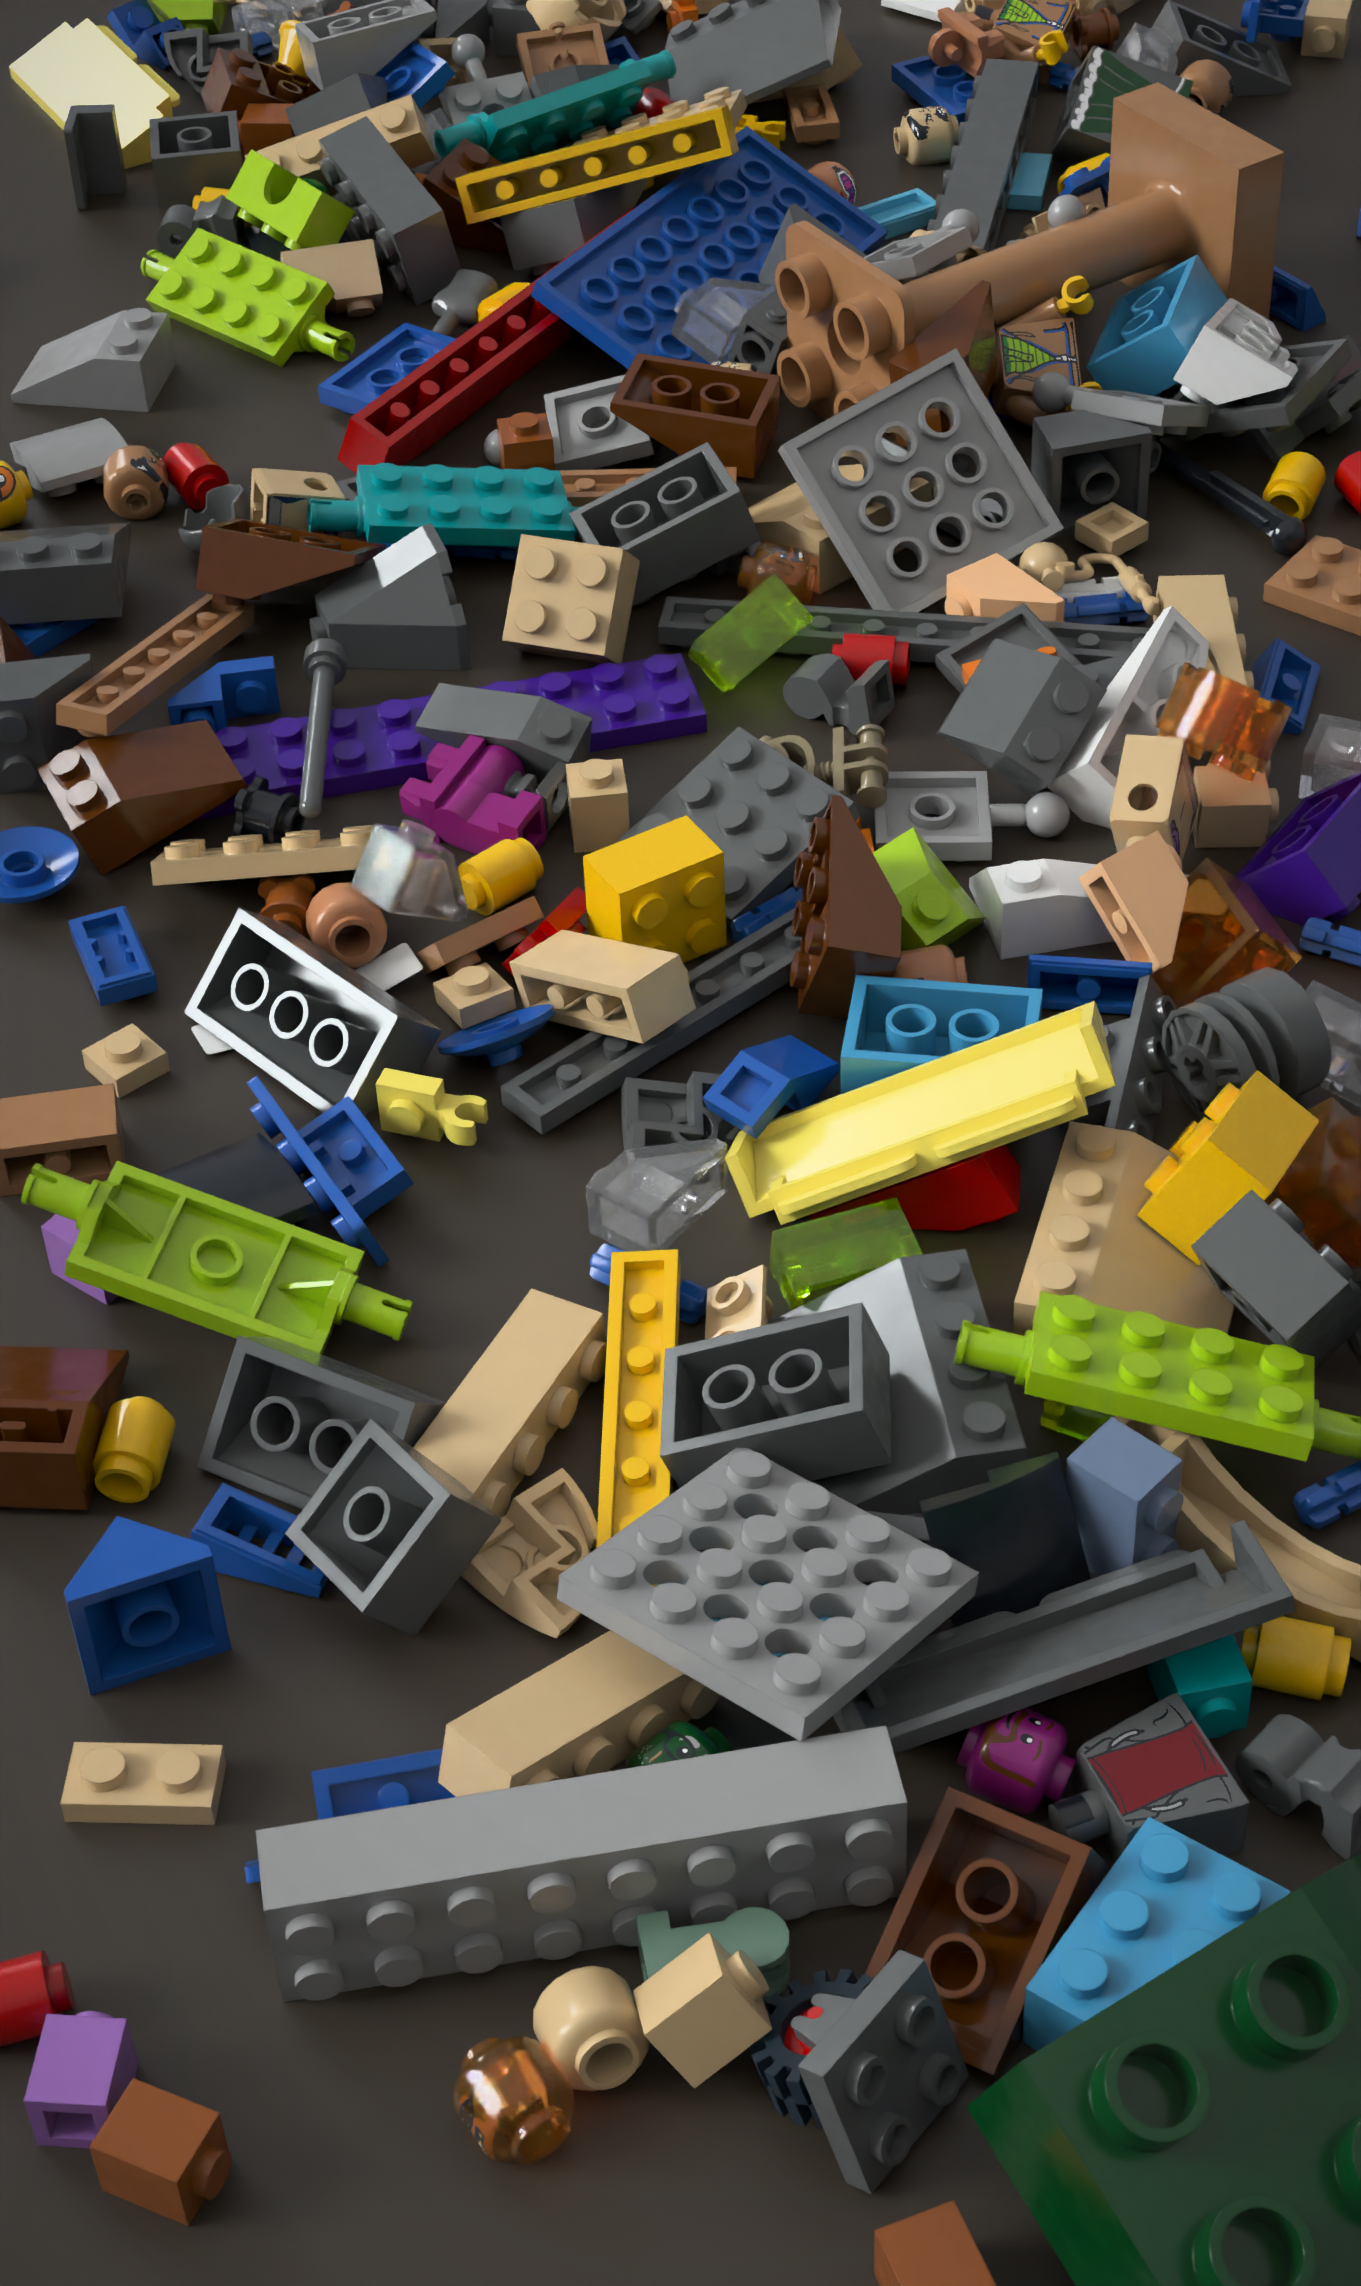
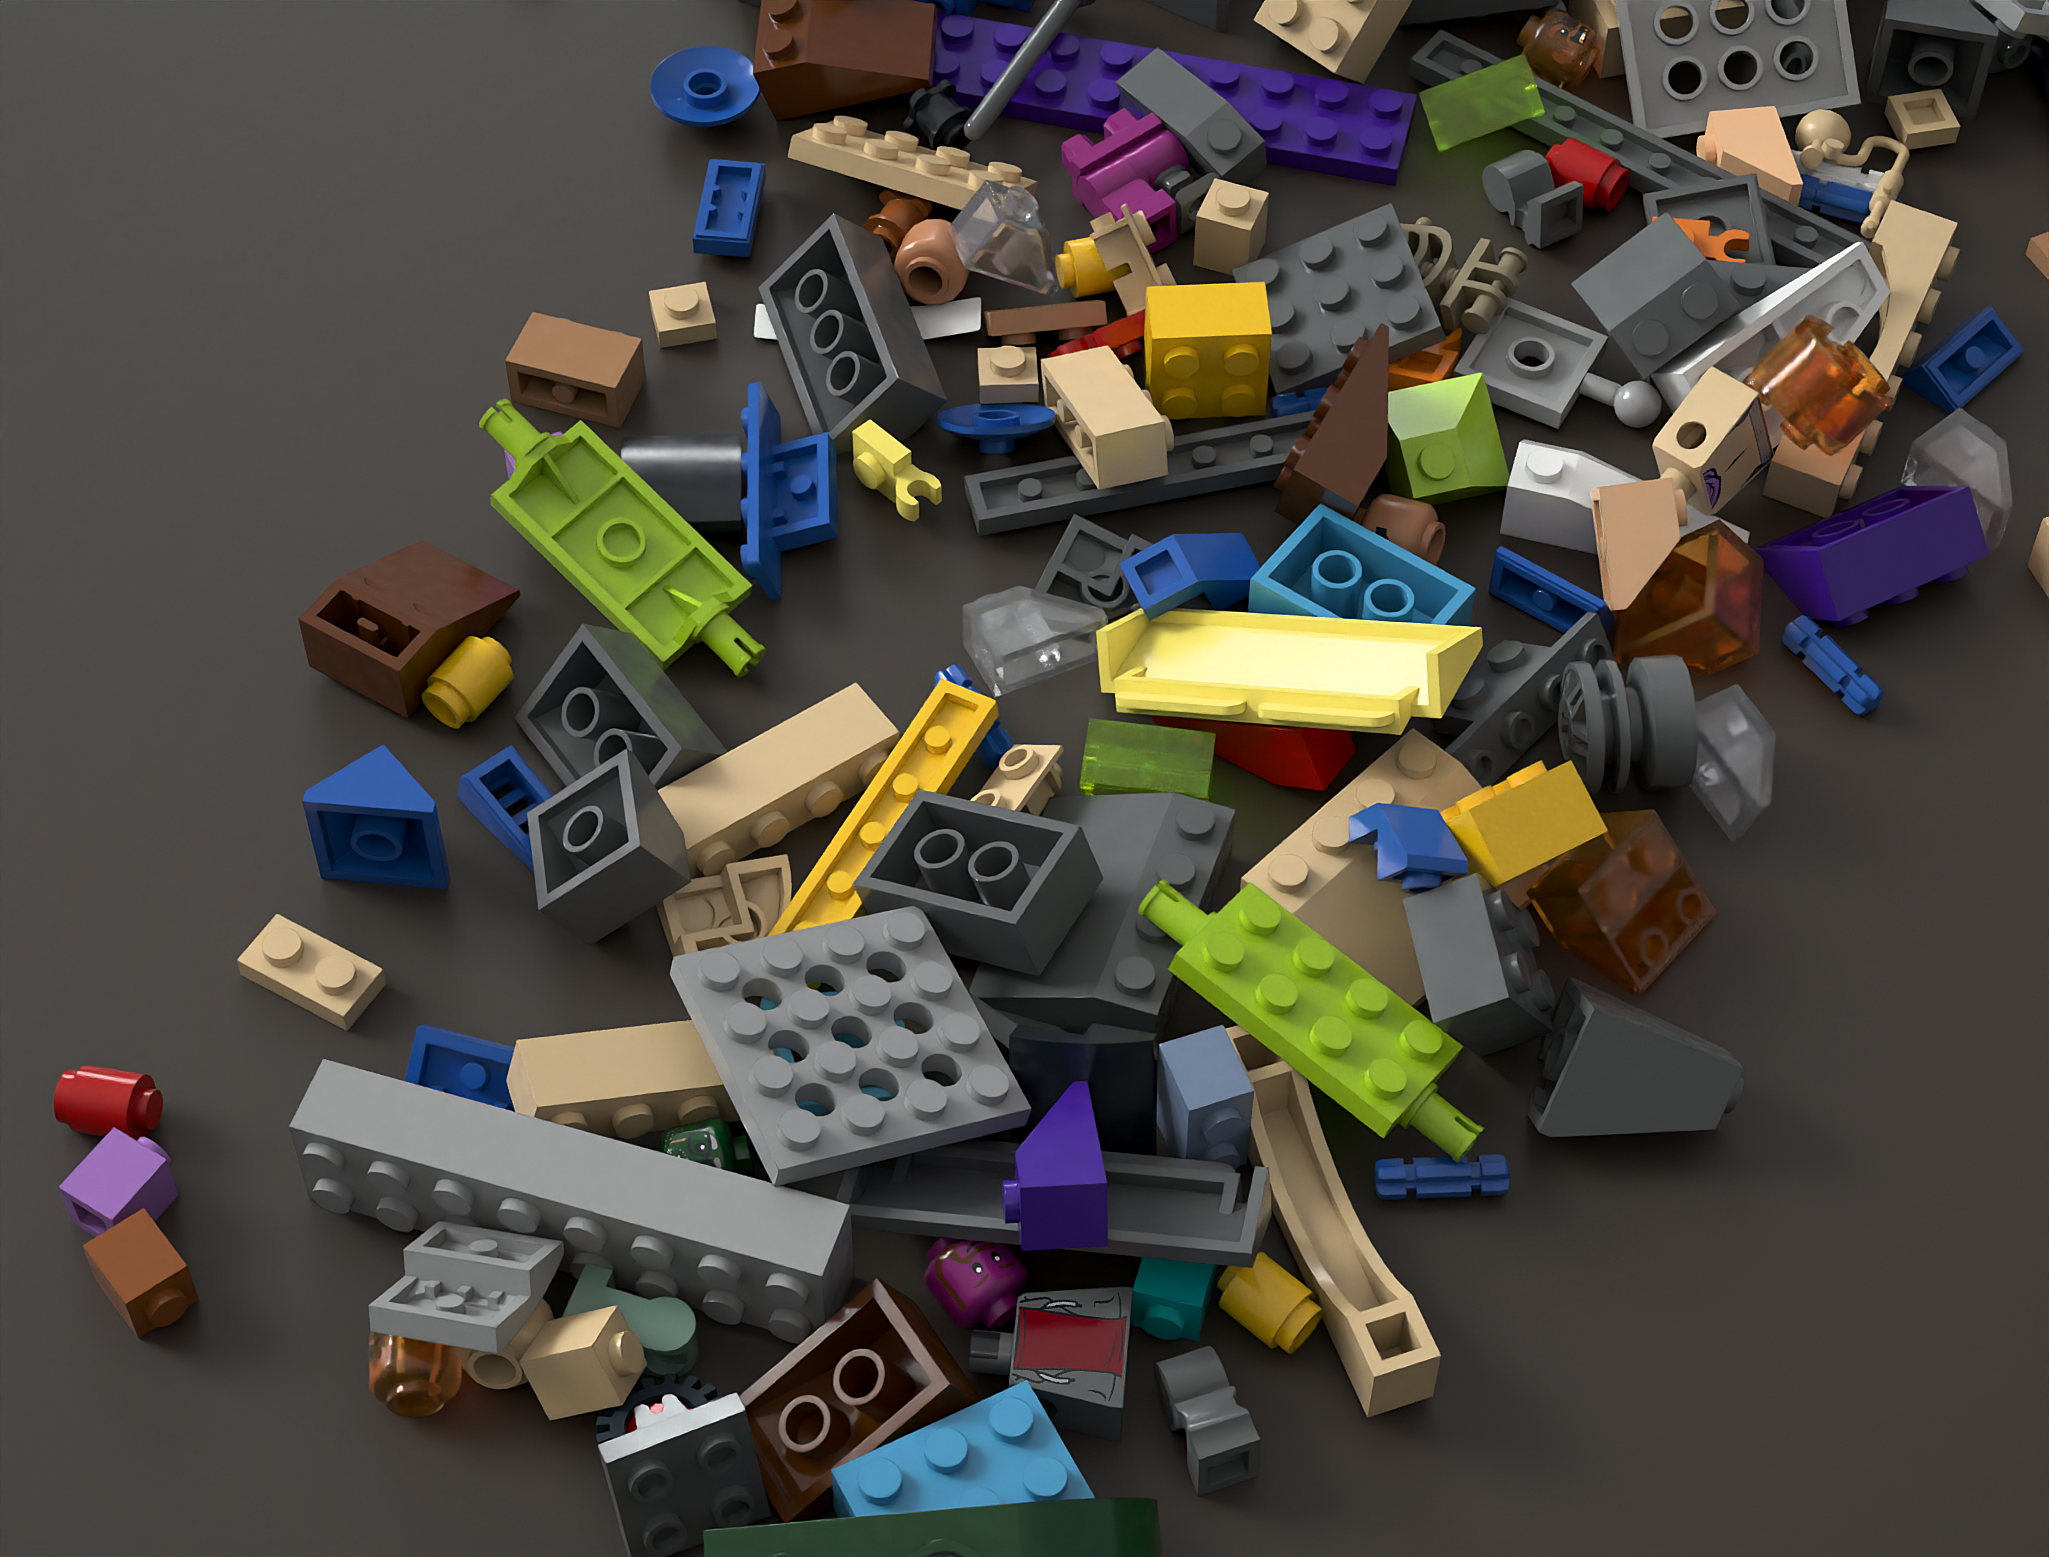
camera: 25 degrees right, 10 degrees up
(526, 839) = (1128, 242): none -> tan hinge
(539, 1990) = (467, 1287): none -> light grey slope
(1077, 1610) = (1060, 1179): none -> dark purple slope
(1162, 1199) = (1410, 846): none -> blue slope

